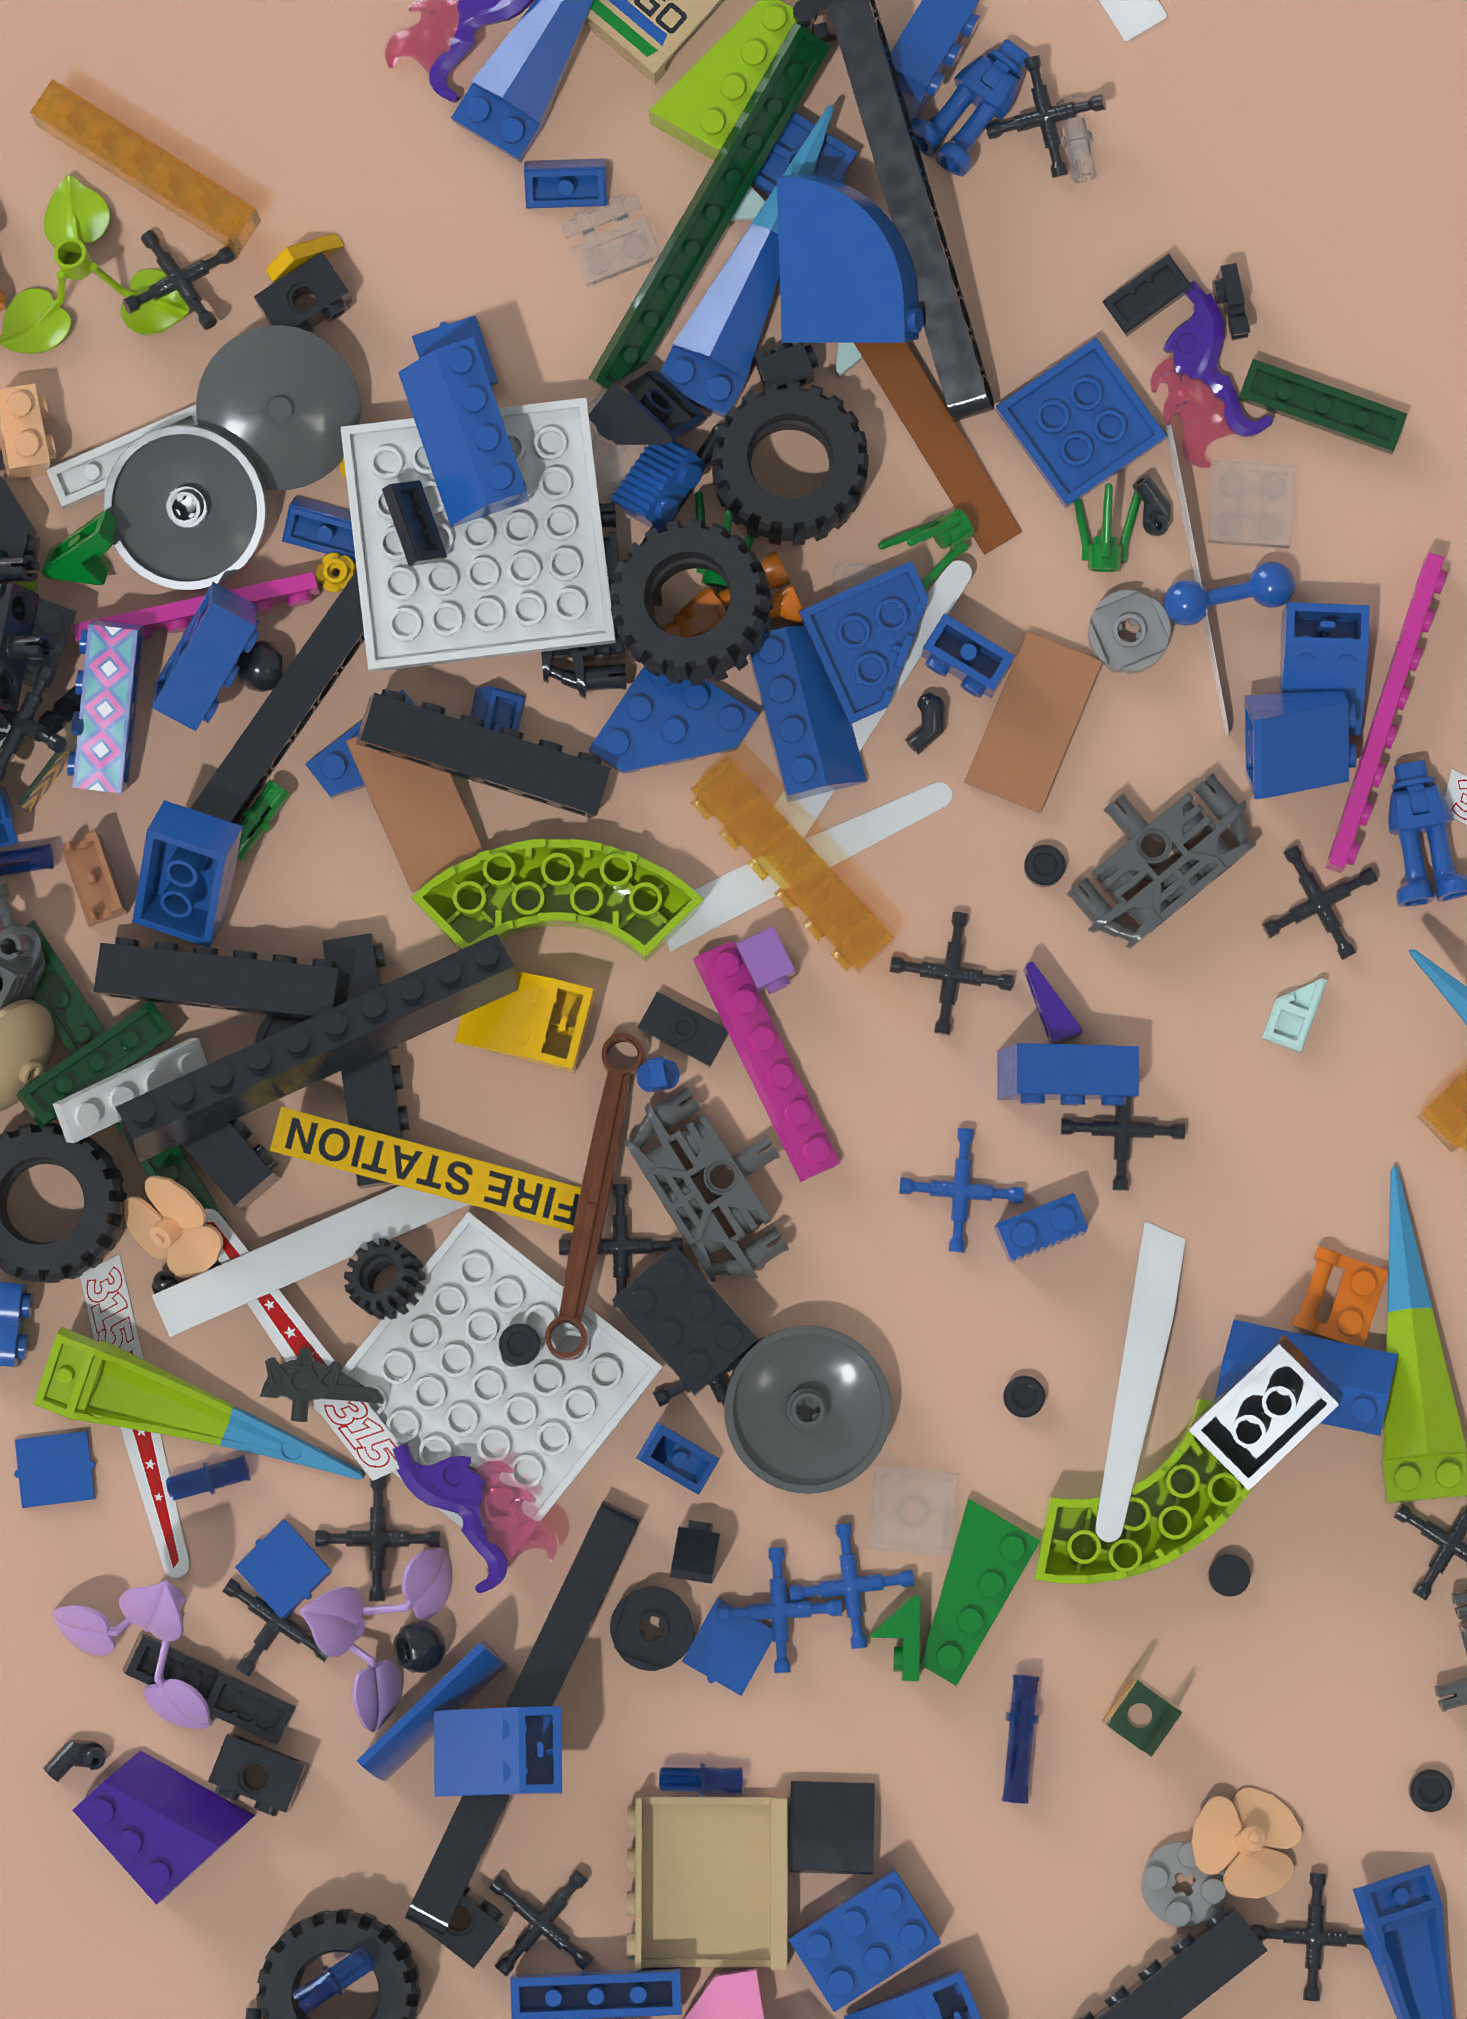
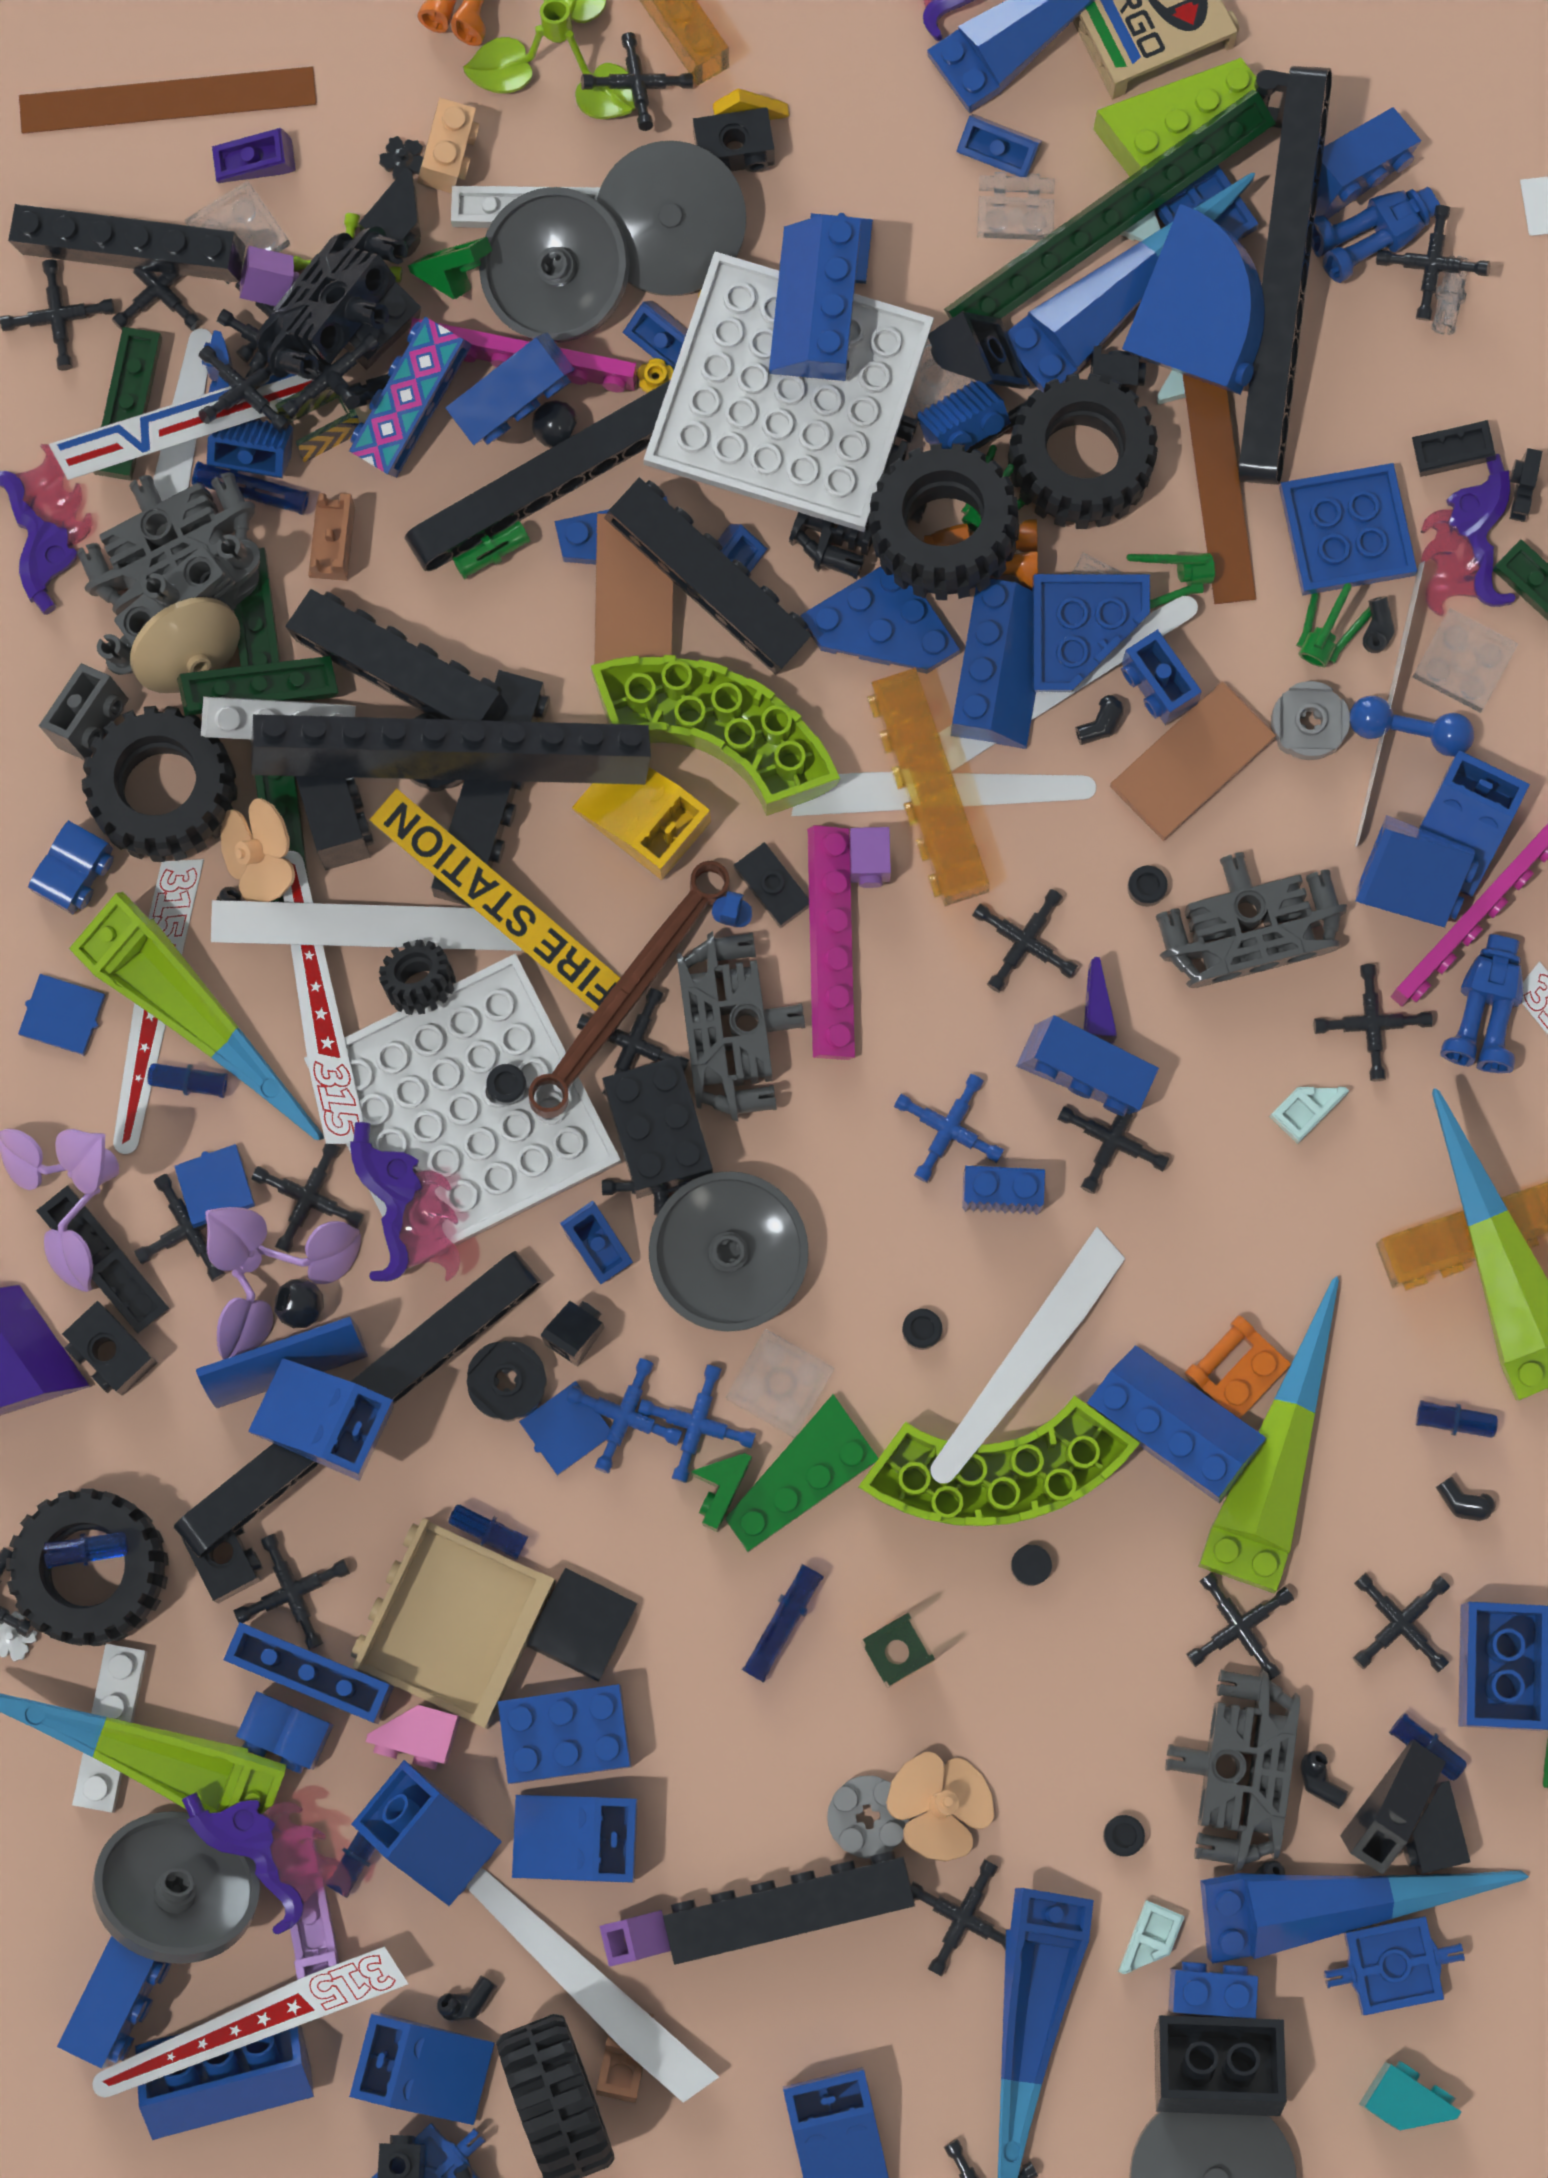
camera: 20 degrees right, 5 degrees down
(186, 873) = (409, 560): blue brick -> none
(310, 1381) = (311, 1033): pearl dark grey piece -> none
(414, 523) = (739, 353): black plate -> none
(1266, 1412) = (1127, 1427): brick -> none

